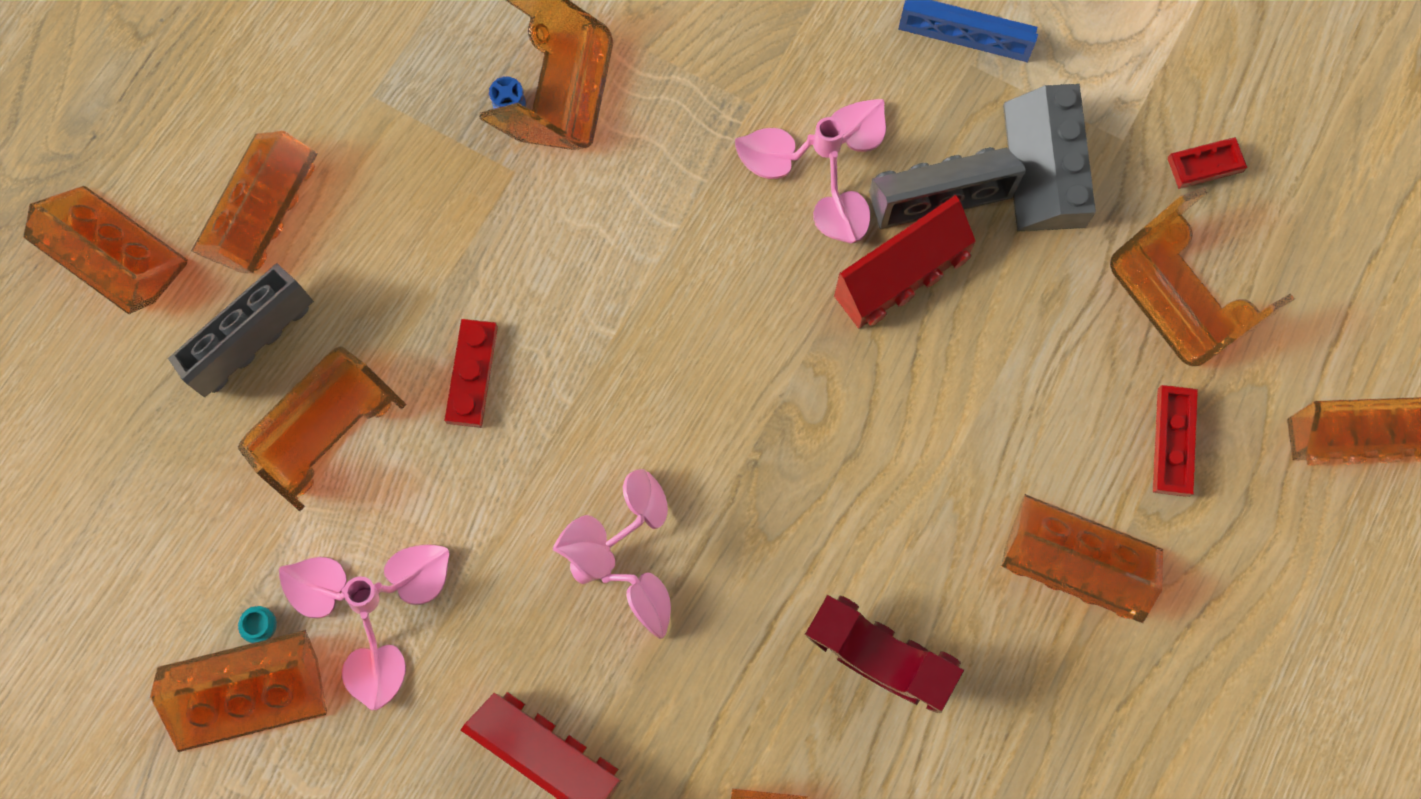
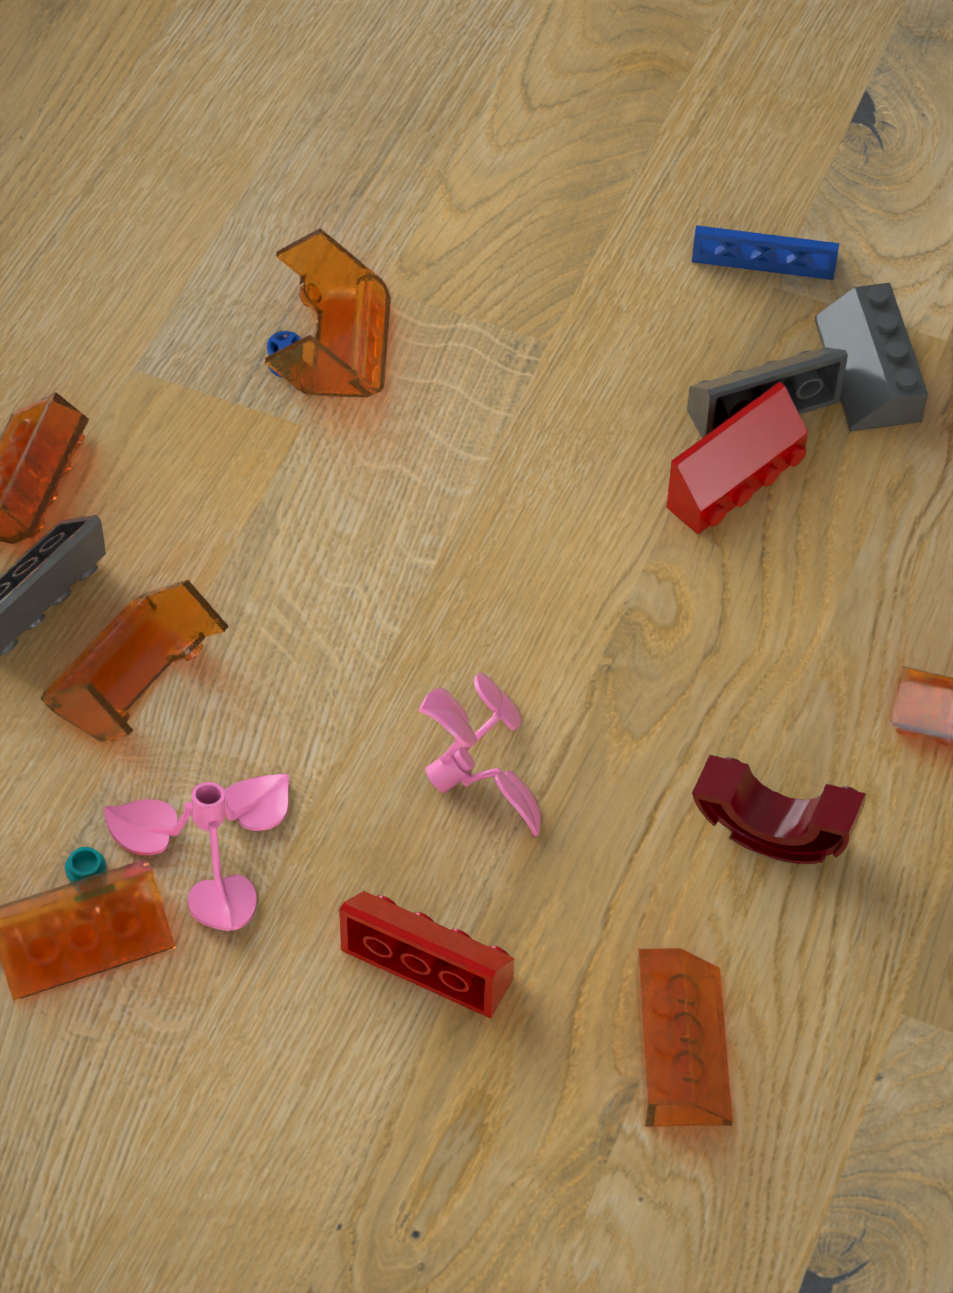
camera: 10 degrees left, 20 degrees down
(471, 373) = (285, 611): red plate -> none
(860, 125) = (666, 348): bright pink plant -> none

